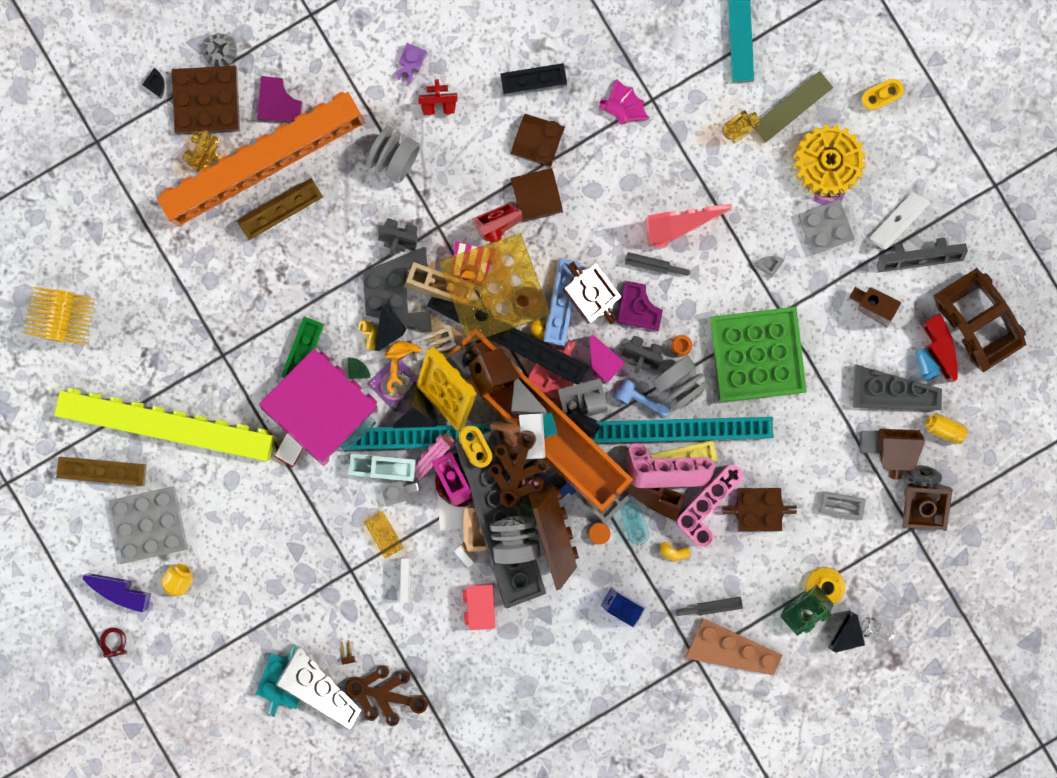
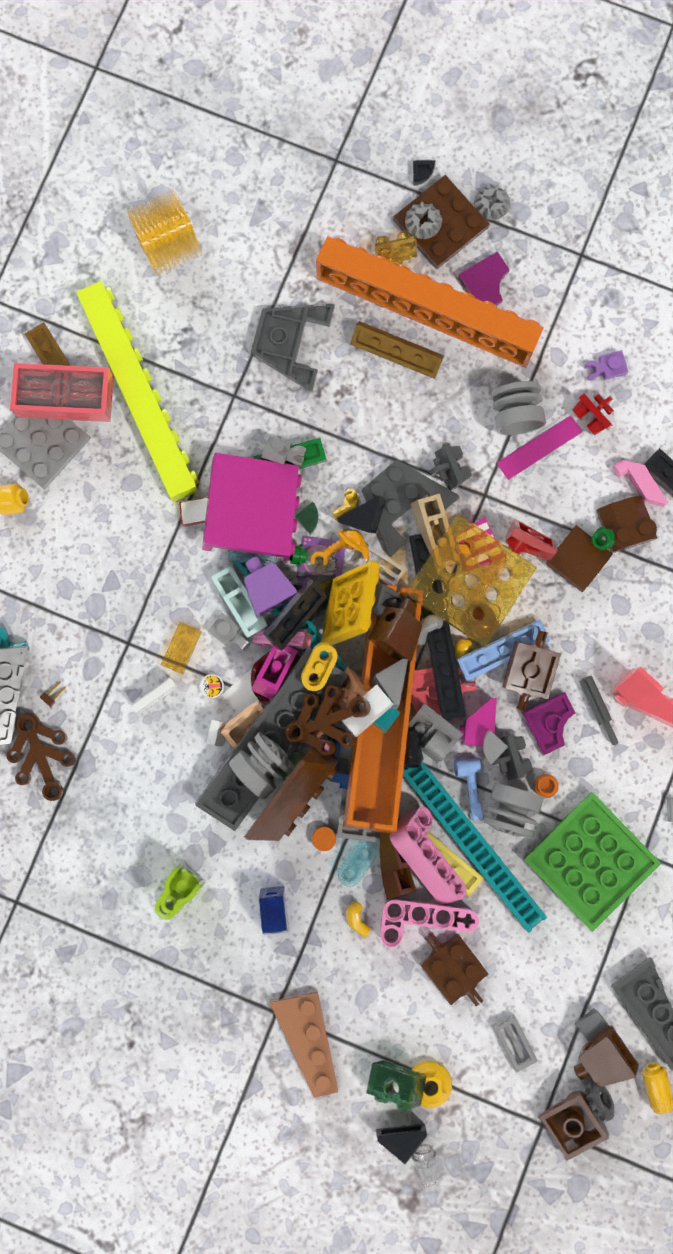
camera: 50 degrees right, 5 degrees down
(126, 483) = (62, 392): none -> brick
(205, 289) = (280, 337): none -> dark grey wing
(206, 115) = (427, 229): none -> light grey gear
(293, 353) = (281, 451): none -> light grey plate
(381, 397) = (299, 556): none -> green plate
(387, 439) = (267, 587): none -> medium lavender torso
(424, 435) = (295, 615): none -> black plate
(428, 532) = (212, 686): none -> tile
(433, 159) = (539, 447): none -> dark pink sticker
(480, 606) = (179, 780): coral brick -> none
(503, 342) = (429, 624): none -> light grey arm
(514, 104) = (642, 482): none -> bright pink piece
(533, 171) = (598, 541): none -> green plate
(558, 662) = (179, 888): none -> lime piece
(625, 363) = (493, 746): none -> light grey tile
(713, 607) = (345, 1004): dark grey axle -> none

